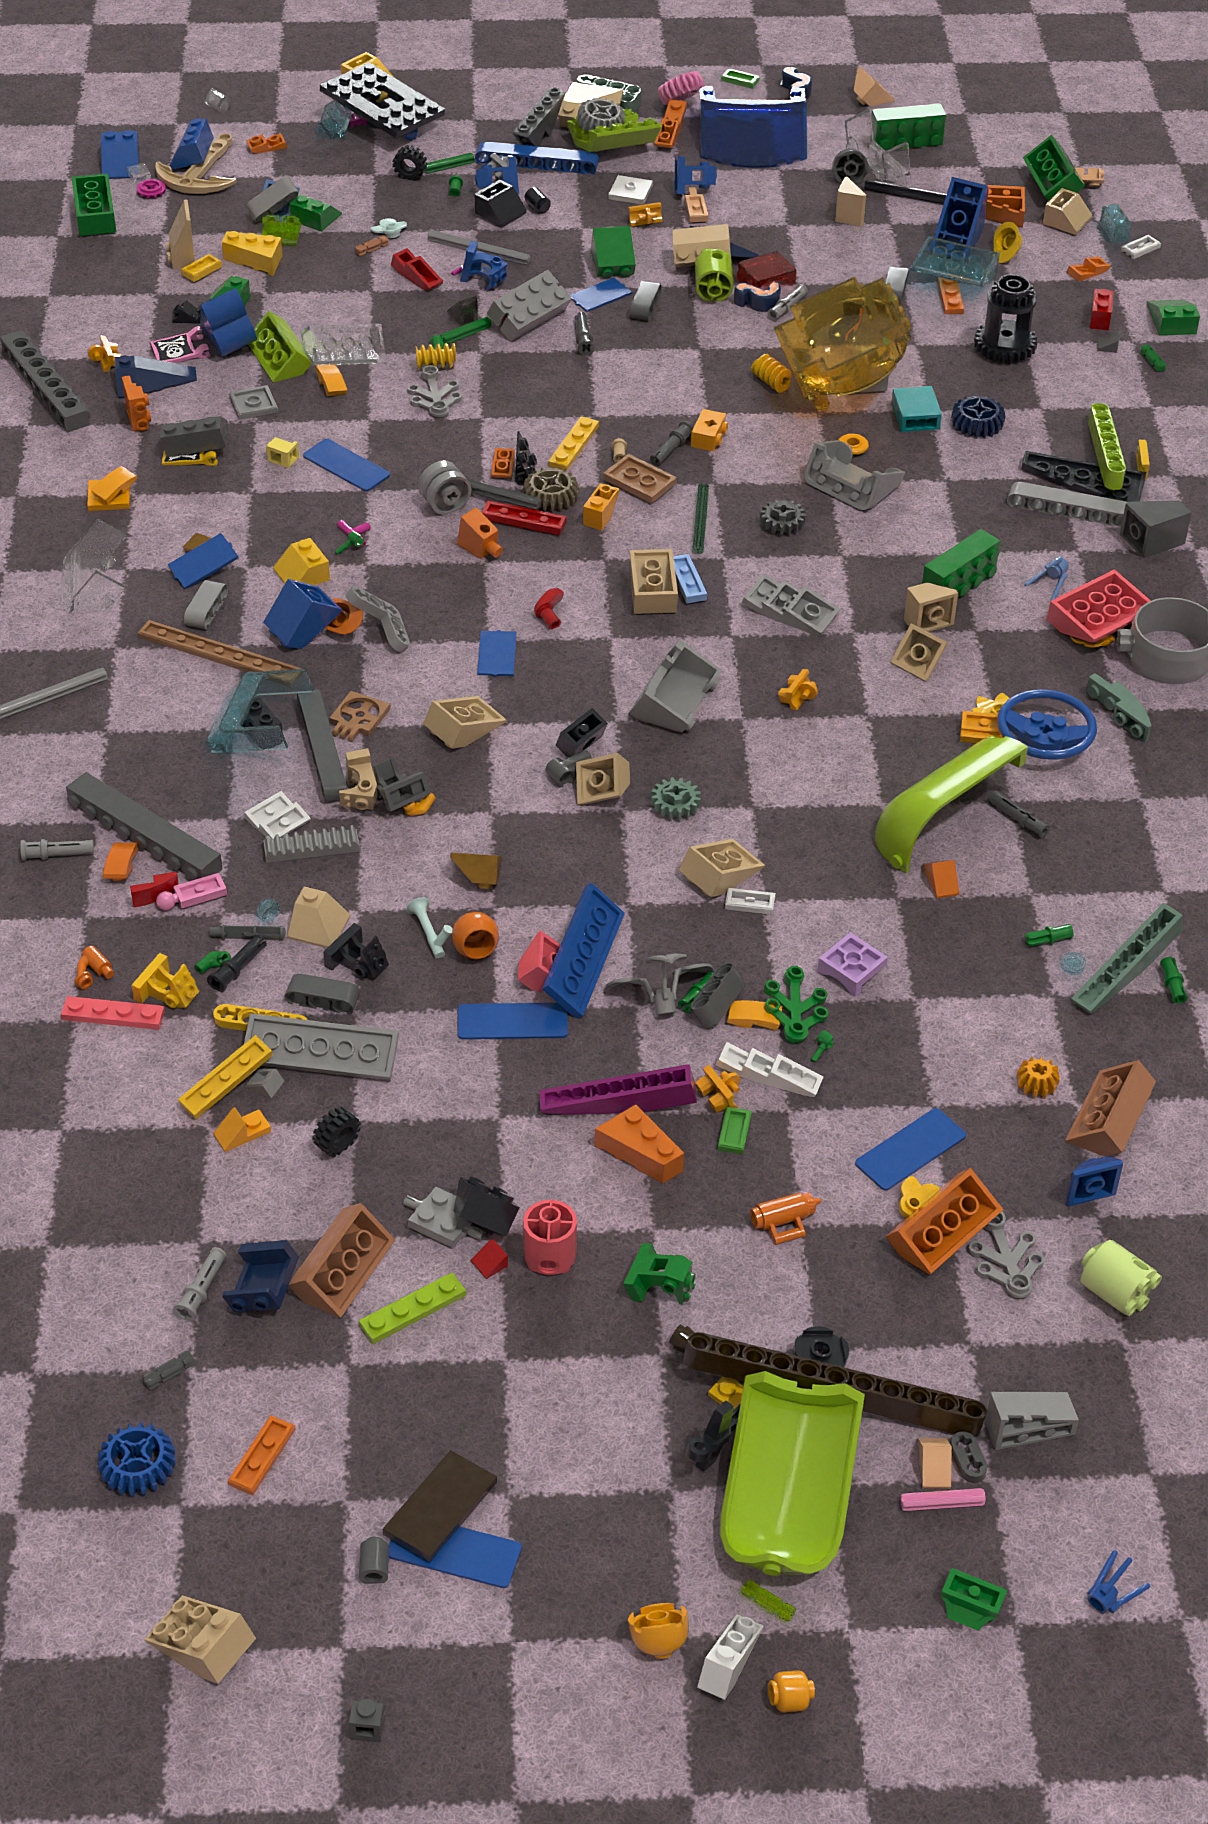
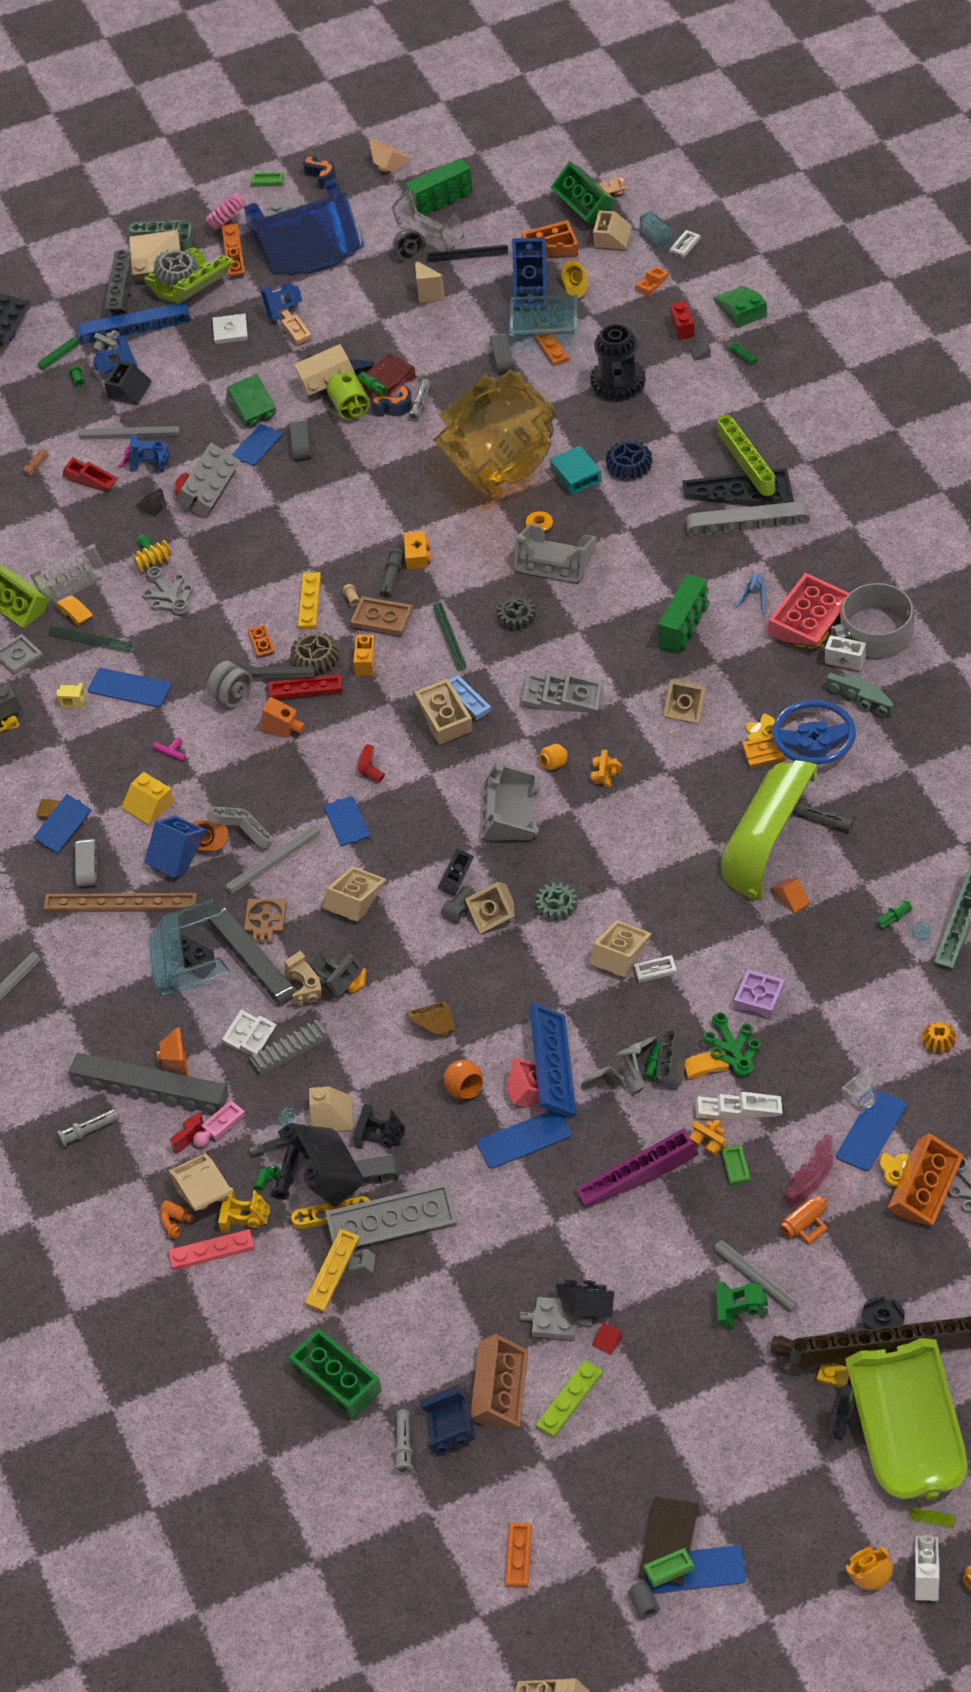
camera: 15 degrees left, 5 degrees up
(119, 861) = (145, 1118): orange slope -> none
(134, 938) = (200, 1182): none -> tan slope
(136, 1468) = (415, 1587): blue gear -> none
(166, 1183) = (335, 1373): none -> green brick
(168, 1370) = (415, 1518): dark grey axle -> none
(186, 807) = (173, 1053): none -> orange slope
(239, 1130) = (365, 1307): light orange slope -> none
(280, 966) = (333, 1169): none -> black windscreen
(333, 410) = (88, 638): none -> clear green axle
(336, 1131) = (442, 1282): black tyre -> none
(353, 538) = (176, 757): green hand -> none
(389, 227) = (41, 438): light aqua plate -> none
(398, 663) = (272, 859): none -> light grey axle
(412, 155) = (27, 361): black tyre -> none
(418, 907) = (433, 1096): light aqua piece -> none
(421, 1533) = (669, 1567): none -> bright green tile
(466, 330) = (162, 520): green axle -> none
(524, 460) = (280, 635): black hinge -> none
(537, 200) = (157, 368): black brick -> none
(550, 1237) = (647, 1305): coral cylinder -> none
(584, 337) = (266, 493): dark grey pin -> none
(640, 1143) = (674, 1204): orange wedge -> none
(645, 214) = (256, 351): light orange hips -> none
(696, 1255) = (756, 1275): none -> light grey axle
(744, 271) = (373, 384): none -> green pin
(748, 661) = (553, 757): none -> light orange head
(772, 373) = (441, 476): yellow piece -> none
(811, 1172) = (812, 1176): none -> clear pink slope
(825, 1040) = (767, 1065): green hand -> none
(920, 1100) = (862, 1089): none -> clear slope
(930, 606) = (675, 658): tan slope -> none
(1122, 661) = (845, 653): none -> white brick
(1142, 457) = (777, 454): yellow tile -> none
(1155, 526) = (817, 519): dark grey slope -> none

